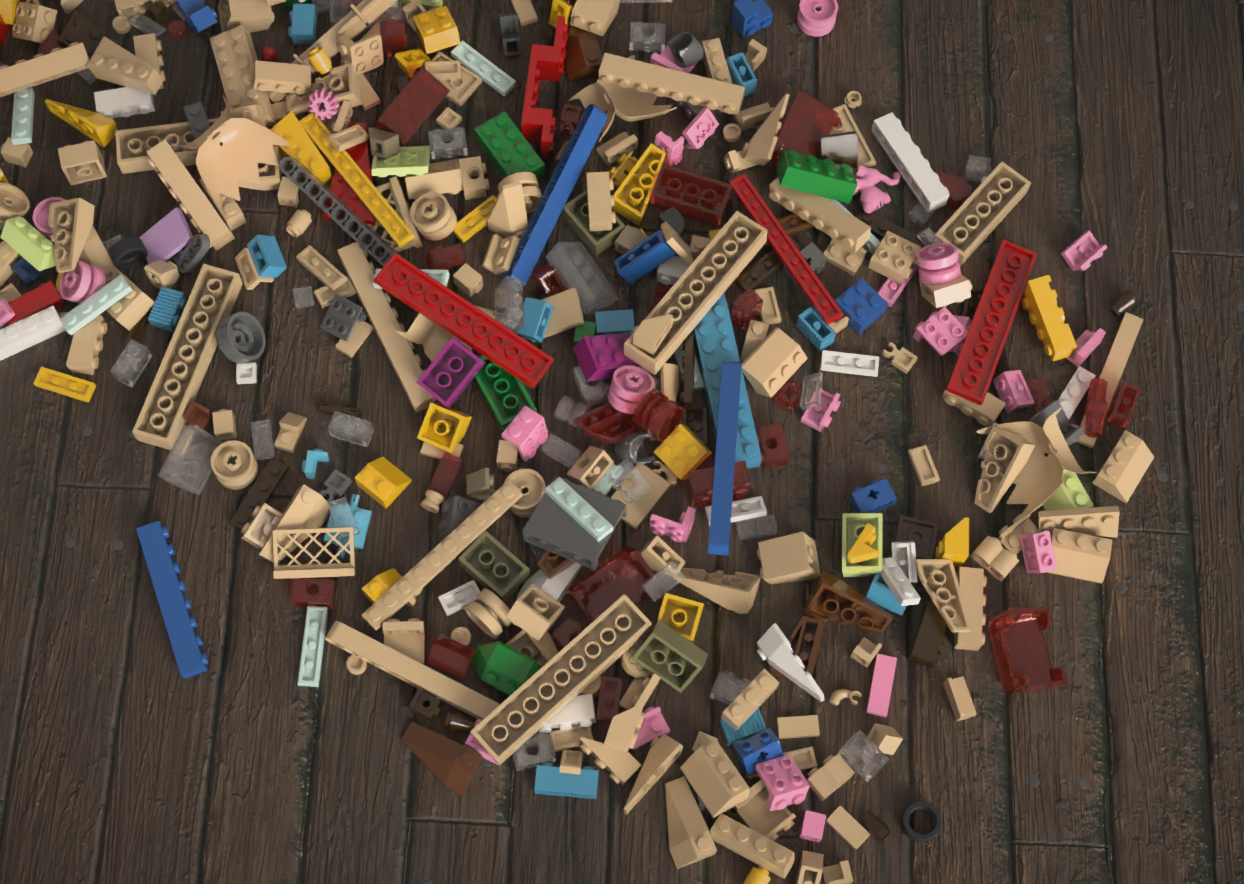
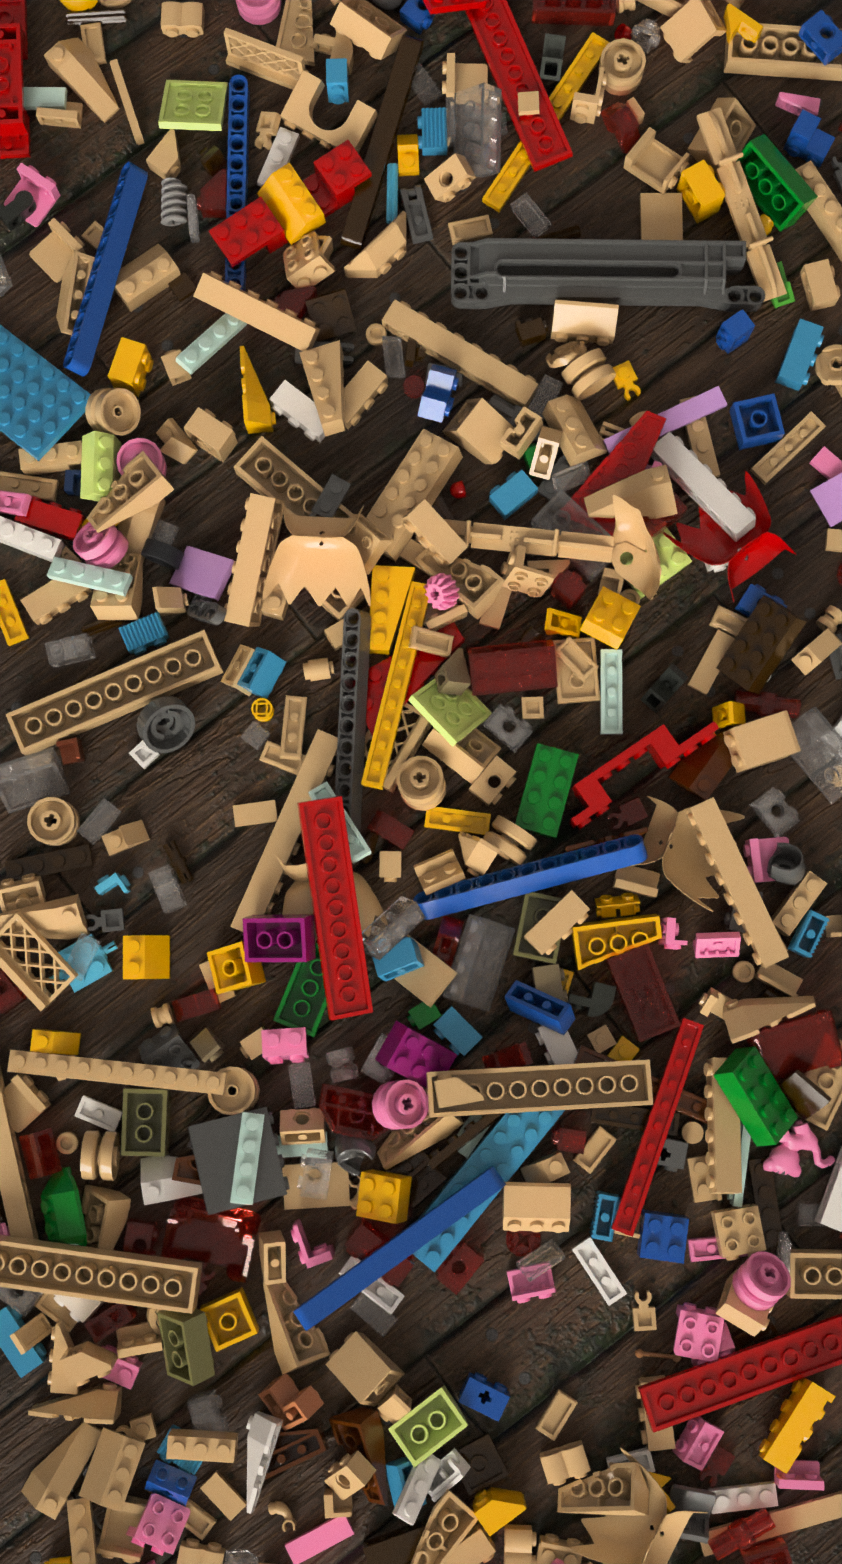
camera: 55 degrees right, 15 degrees up
(64, 189) = (176, 442): none -> tan slope
(224, 424) = (83, 778): tan brick -> none
(294, 279) = (262, 710): none -> yellow wheel
(319, 60) = (483, 547): yellow brick -> none
(342, 317) = (260, 789): dark grey hinge -> none
(535, 612) = (126, 1200): tan brick -> none
(658, 415) = (392, 1153): clear red wheel -> none
(663, 581) = (249, 1280): clear tile -> none
(677, 243) = (576, 1027): tan tile -> none
(778, 613) = (288, 1402): none -> nougat brick
(807, 238) = (692, 1132): none -> tan tile
(830, 556) = (394, 1405): none -> tan slope
(852, 633) = (349, 1474): none -> tan brick
(861, 550) = (414, 1436): yellow slope -> none
(946, 363) = (639, 1353): none -> medium nougat hinge
(959, 482) = (565, 1462): none -> tan brick

